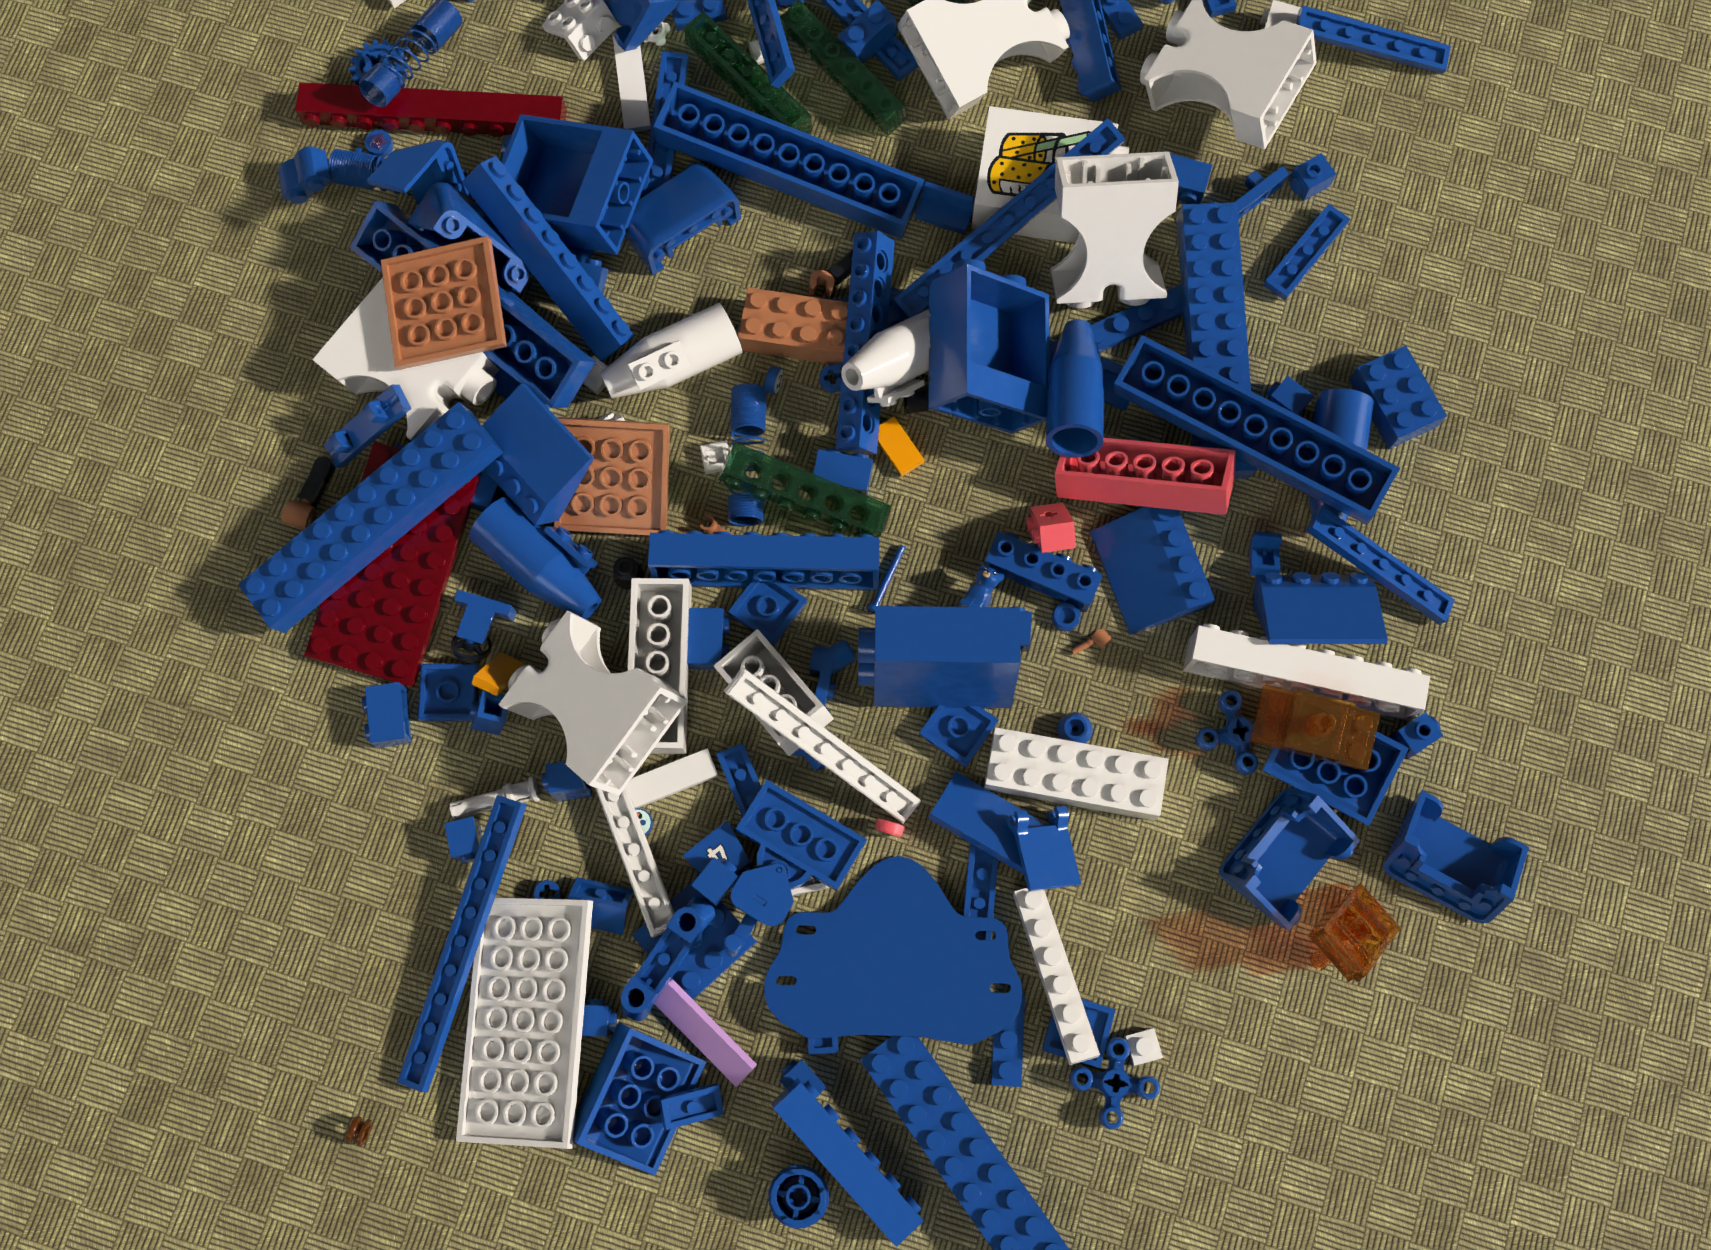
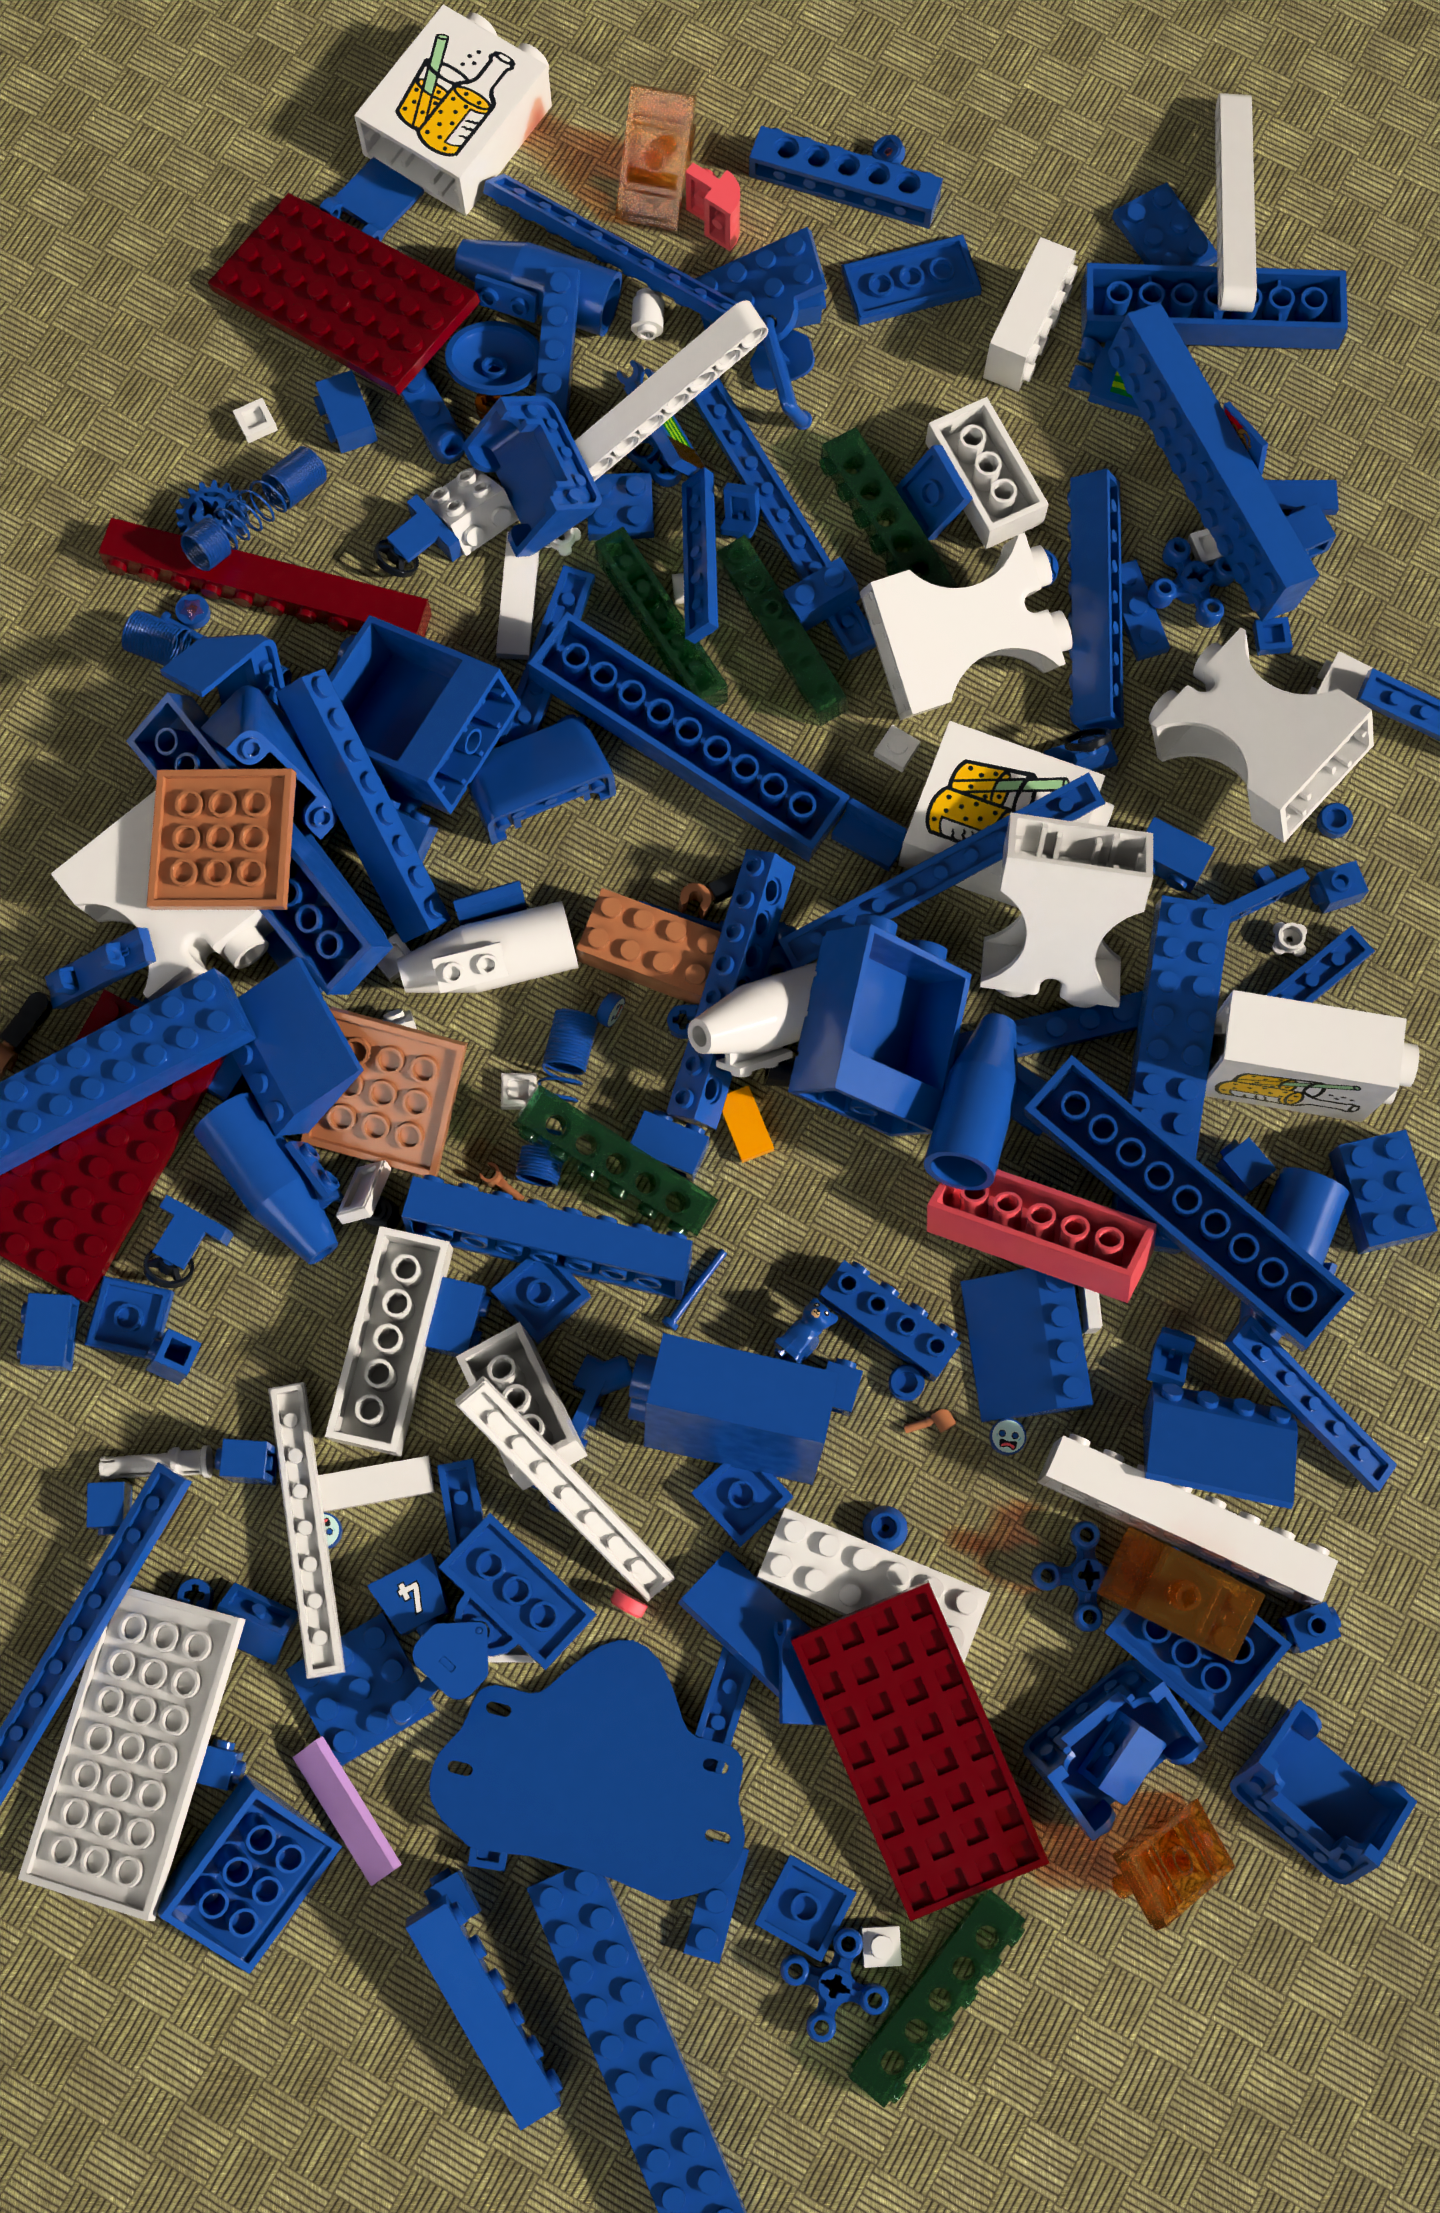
camera: 10 degrees right, 0 degrees up
(304, 175) = (91, 635): blue brick -> none
(496, 673) = (193, 1309): light orange tile -> none
(541, 52) = (414, 538): none -> blue piece
(605, 716) = (305, 1395): white brick -> none
(612, 556) = (363, 1192): none -> white tile
(663, 315) = (490, 903): none -> blue tile
(665, 958) = (319, 1708): blue plate -> none
(691, 1106) = (310, 1898): blue plate -> none
(716, 880) = (399, 1627): blue brick -> none
(798, 1196) = (415, 2041): blue cone -> none
(950, 140) = (897, 748): none -> white plate
(1051, 527) = (910, 1269): coral brick -> none
(1056, 976) = (792, 1836): white plate -> none
(1100, 107) = (1091, 751): none -> piece
(1141, 889) = (919, 1751): none -> dark red plate
(1153, 640) = (1007, 1436): none -> tile
(1167, 1111) = (938, 1973): none -> clear green brick
(1195, 529) = (1090, 1310): none -> white tile
(1283, 217) = (1293, 930): none -> white plate
(1296, 862) = (1121, 1758): none -> blue panel
(1297, 129) = (1334, 820): none -> blue tile
(1321, 302) = (1308, 1056): none -> white brick

